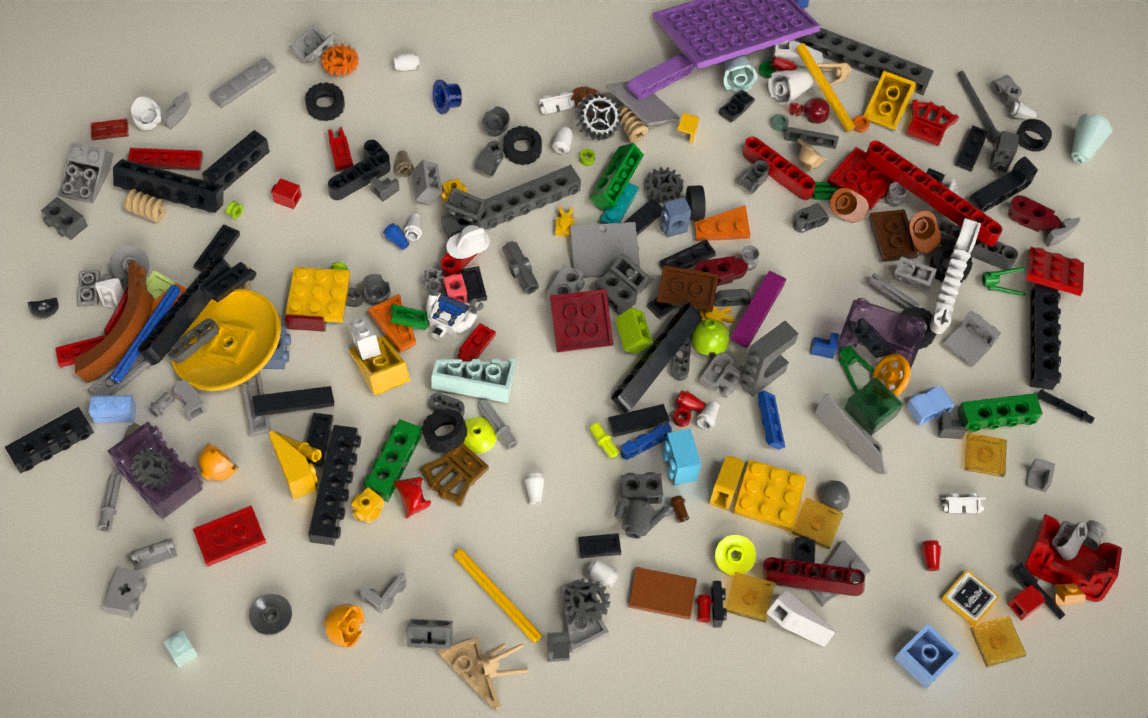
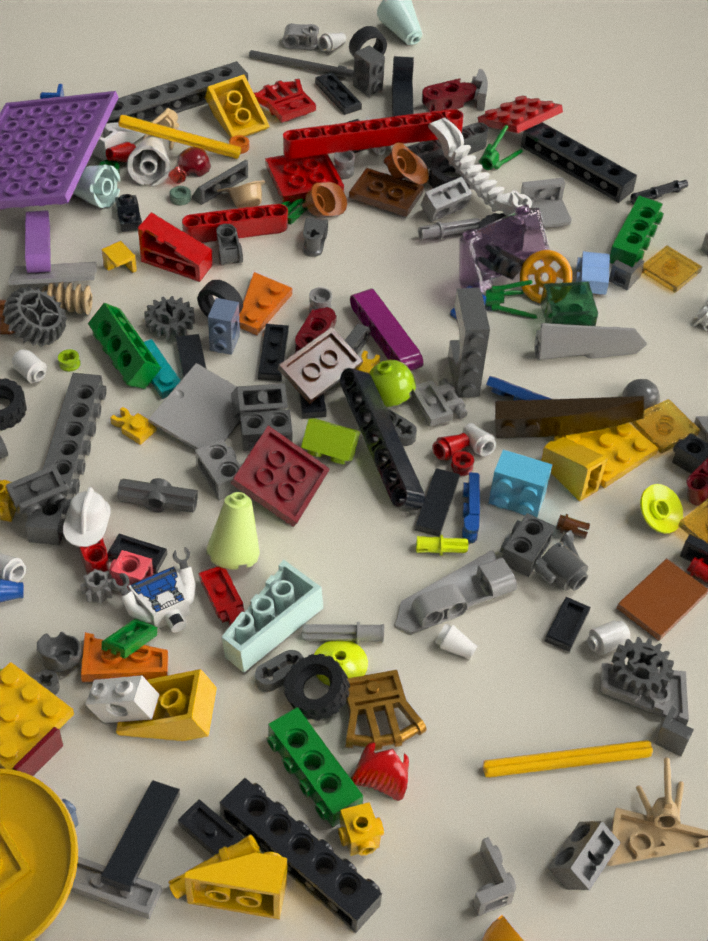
camera: 55 degrees left, 10 degrees down
(514, 324) = (234, 534): none -> yellowish green cone
(578, 470) = (453, 594): none -> light grey panel
(720, 149) = (173, 249): none -> red wedge
(763, 453) = (564, 416): none -> dark brown slope

